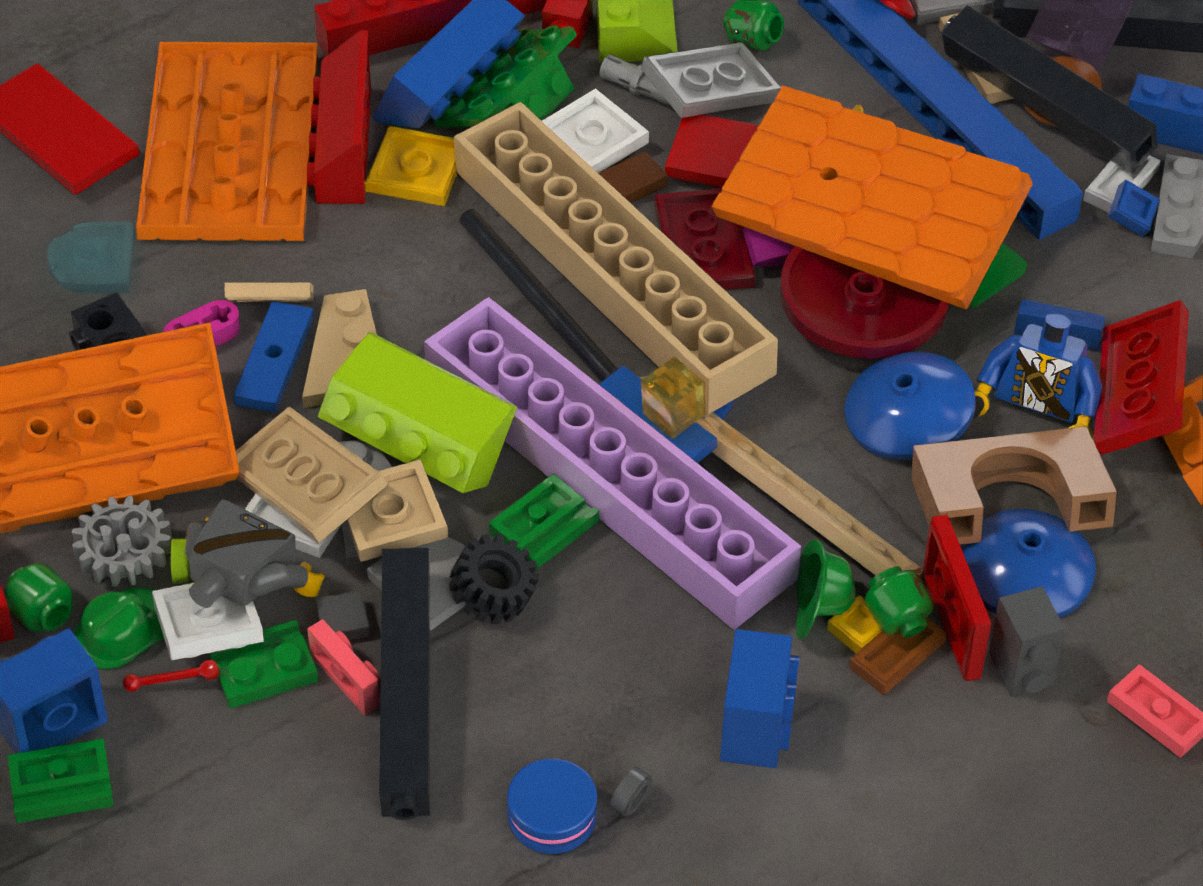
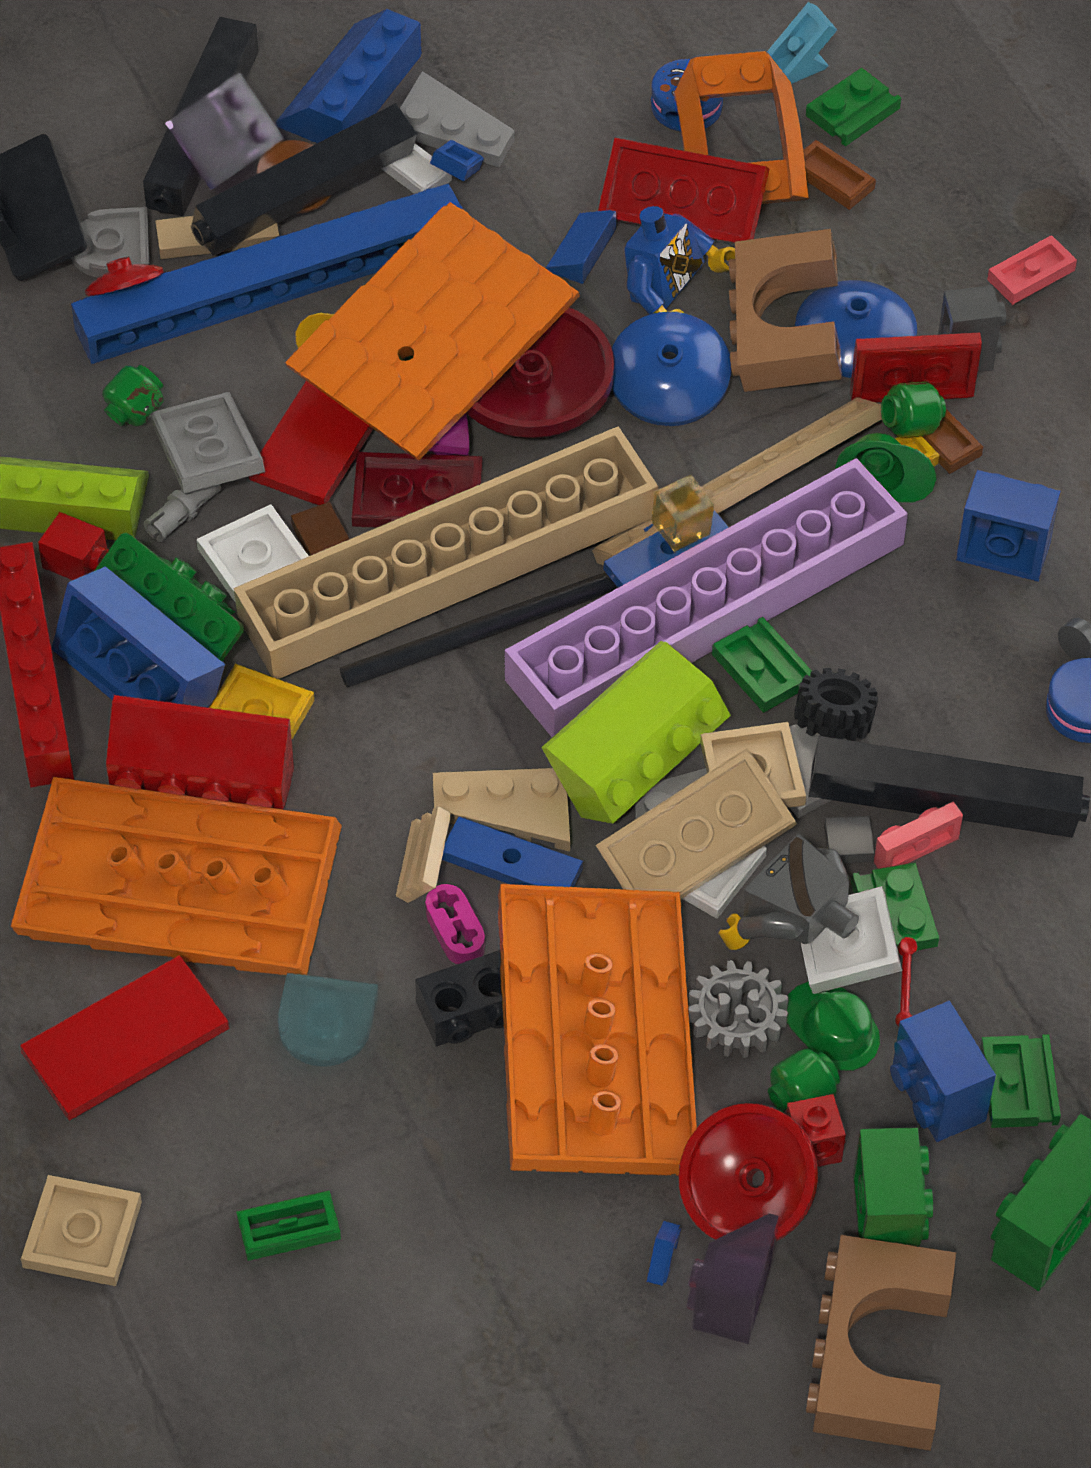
camera: 80 degrees left, 5 degrees up
(179, 563) = (774, 956): lime tile -> none

